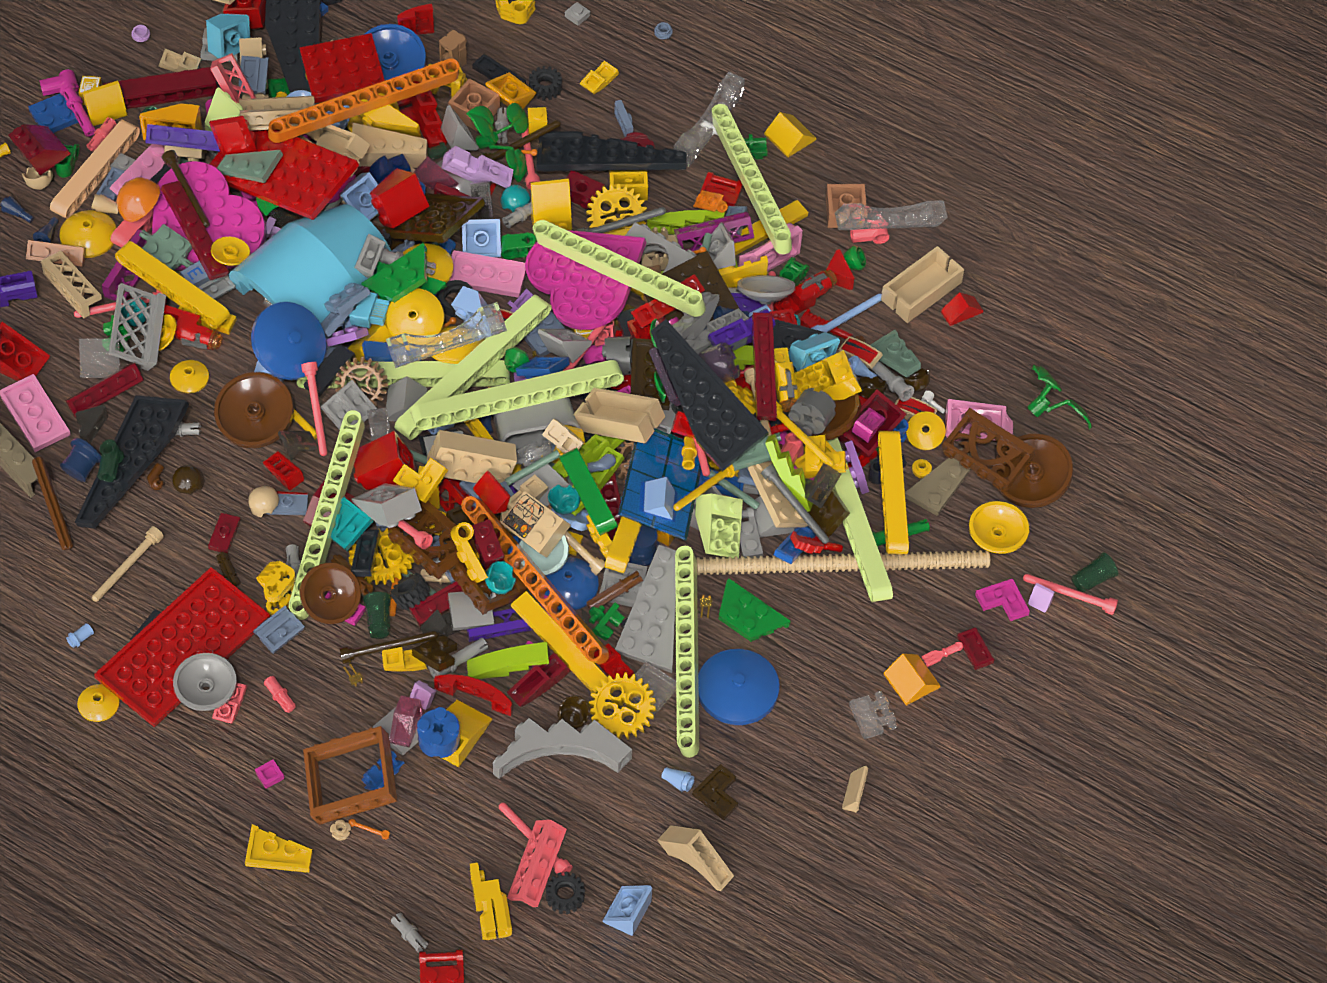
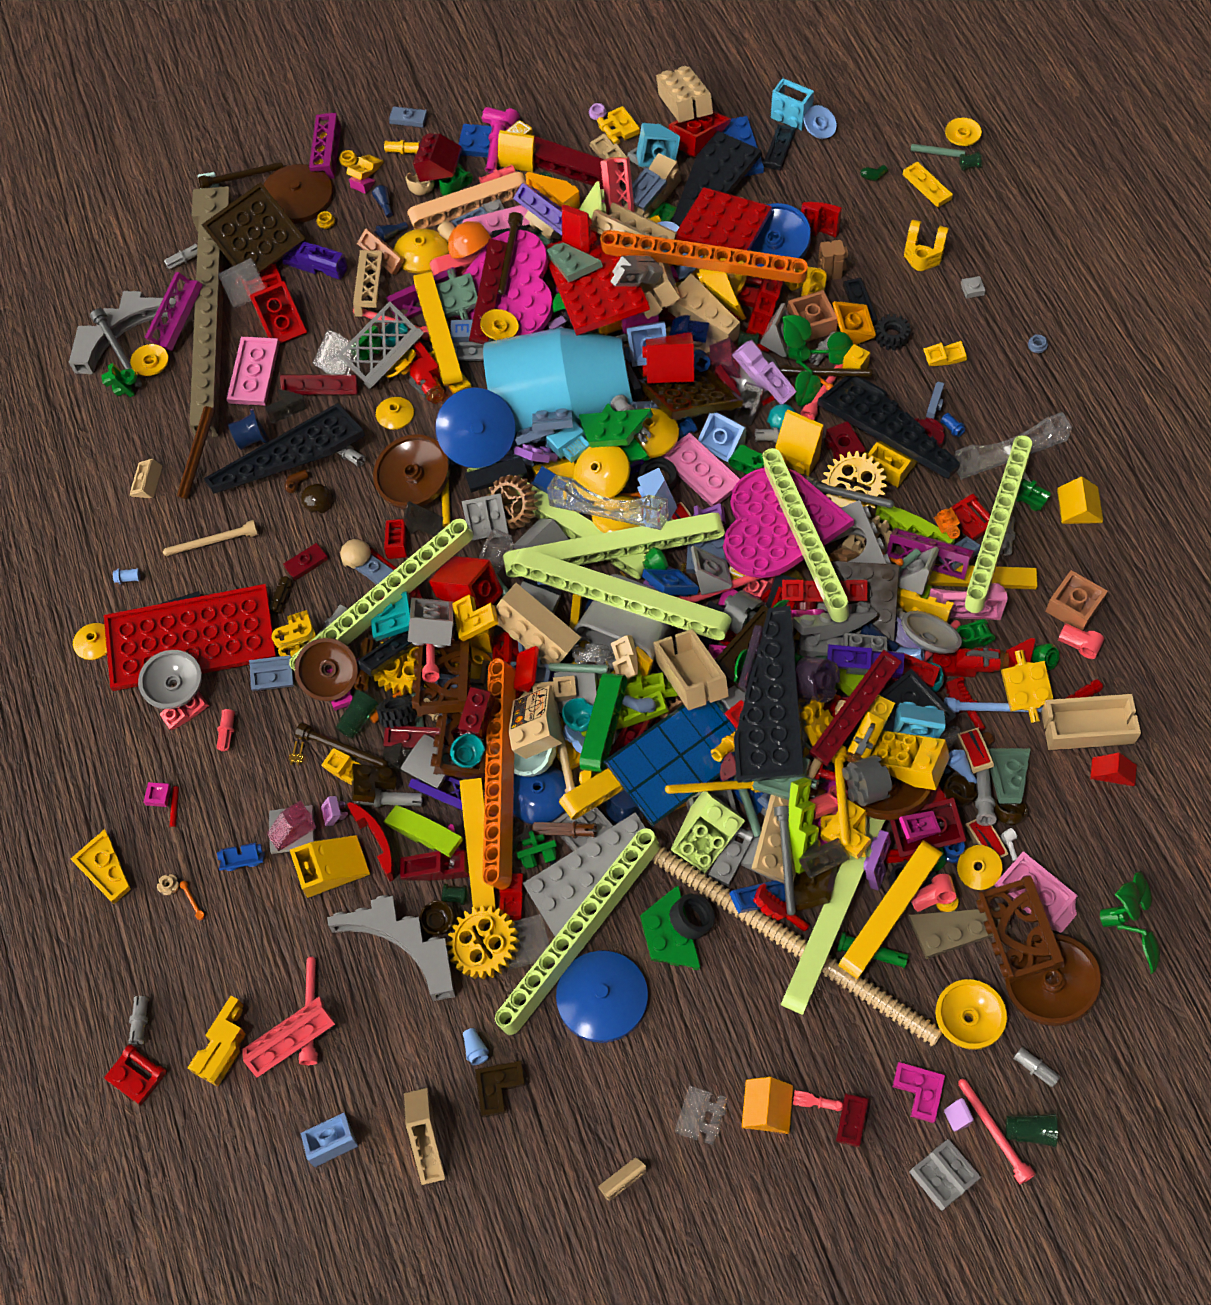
camera: 45 degrees right, 5 degrees up
(19, 554) = (146, 479): none -> tan slope
(110, 459) = (269, 441): clear green piece -> none
(172, 31) = (623, 123): none -> yellow plate
(289, 777) = (174, 803): none -> red piece
(310, 371) = (472, 464): coral piece -> none
(324, 140) = (635, 269): none -> light grey plate
(357, 803) = (183, 825): dark orange window -> none
(369, 255) = (601, 393): light grey slope -> none
(438, 733) = (296, 857): blue brick -> none
(466, 554) = (447, 710): yellow plate -> none
(565, 904) = (299, 1092): black tyre -> none
(571, 688) = (454, 894): none -> clear green bush
(652, 129) = (953, 425): none -> blue pin
(659, 497) = (659, 771): light blue slope -> none
(703, 468) = (728, 767): none -> dark red tile
(705, 602) = (641, 895): clear yellow piece -> none
(749, 589) = (704, 911): none -> black tyre
(859, 216) = (1081, 624): clear arch -> none
(860, 285) = (1027, 686): none -> yellow plate
(902, 264) = (1088, 690): none -> red axle
(913, 461) = (940, 891): none -> coral piece
(1061, 641) = (945, 1174): none -> light grey slope
(1065, 535) = (1036, 1067): none -> light grey axle

